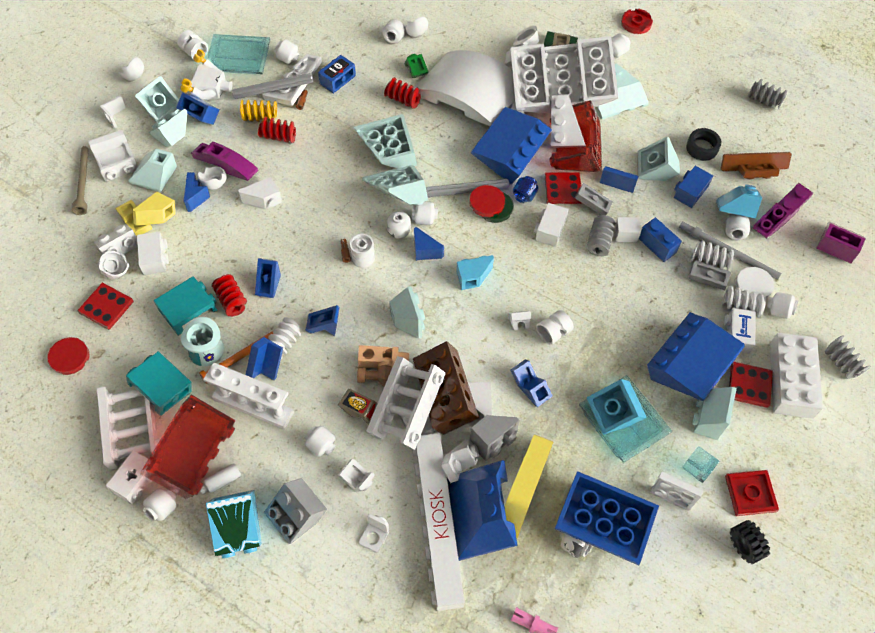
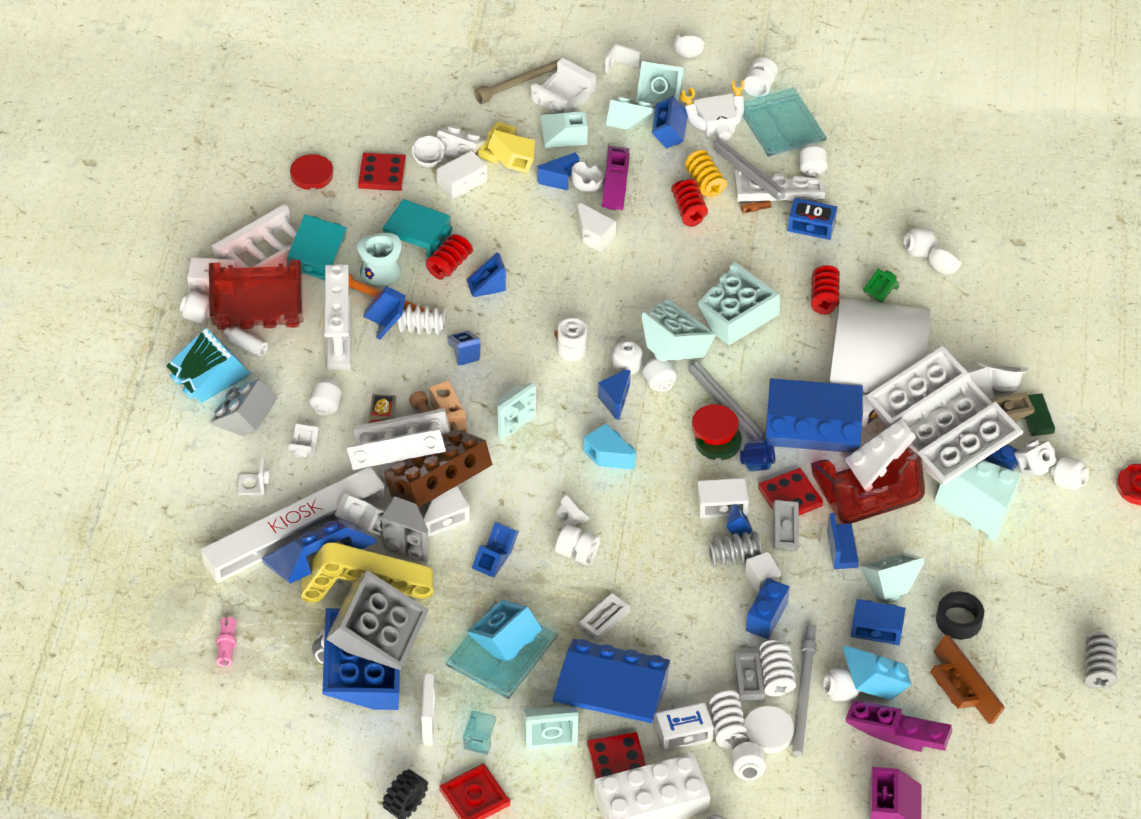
camera: 65 degrees right, 10 degrees down
(578, 223) = (738, 521): none -> blue slope
(591, 494) = (377, 622): none -> light grey slope
(627, 353) = (620, 605): none -> white tile

